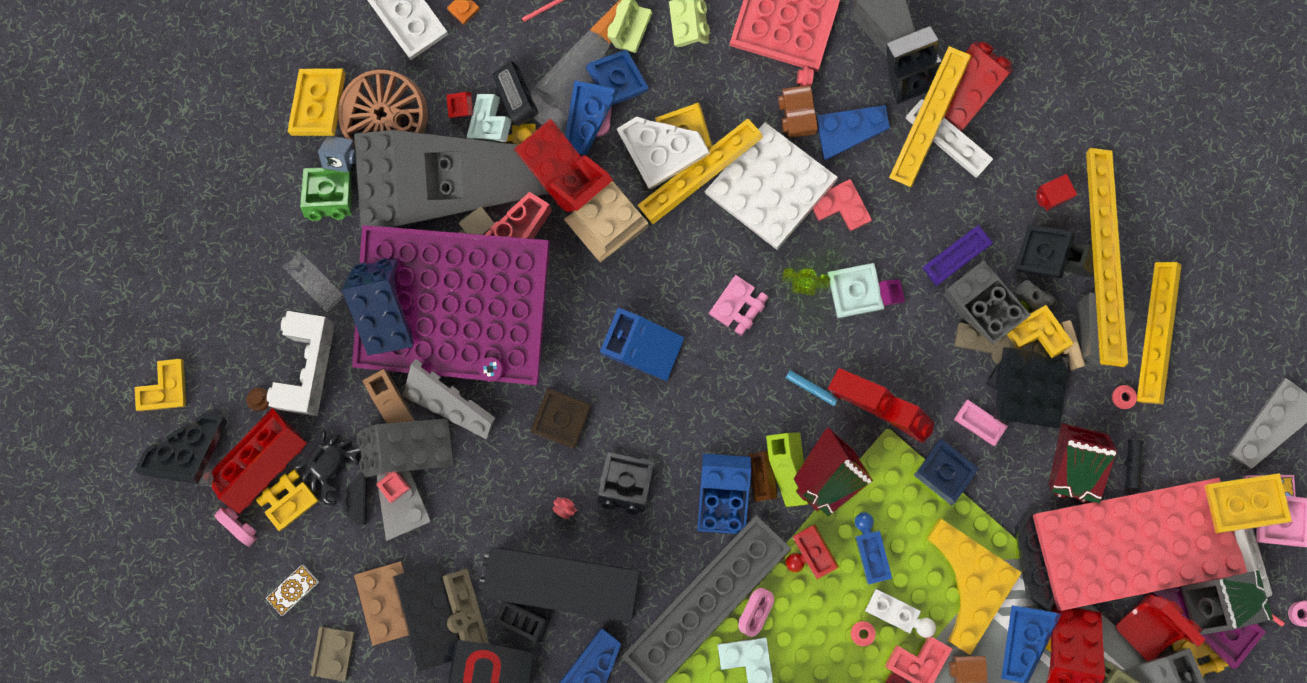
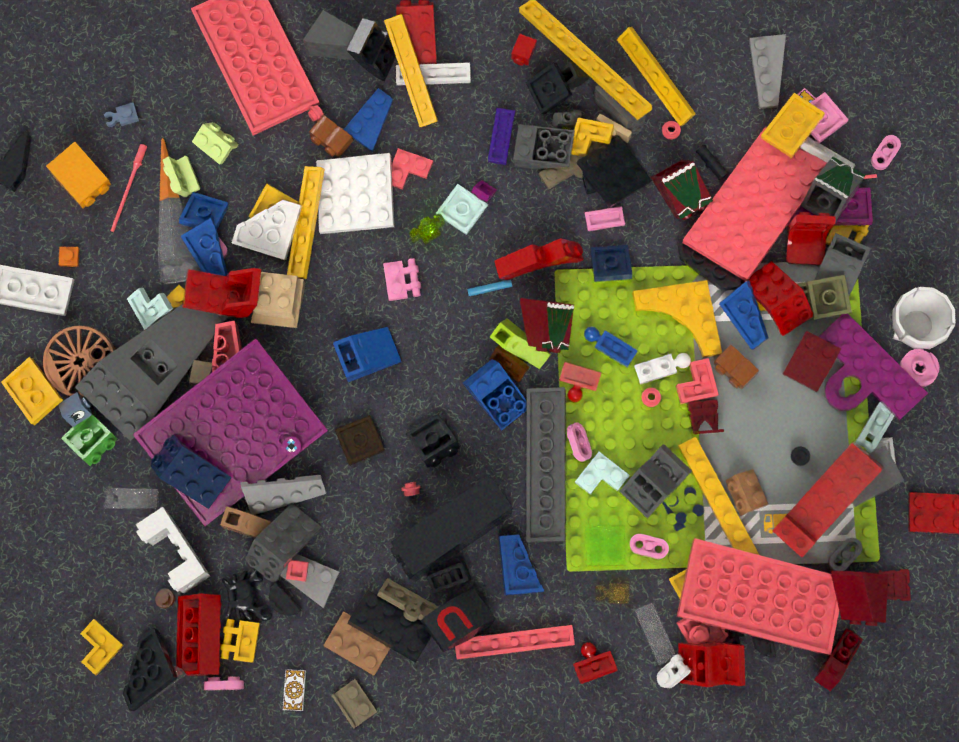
camera: 45 degrees left, 5 degrees down
(459, 105) = (122, 314): red plate -> none
(515, 93) = (151, 276): black beam -> none

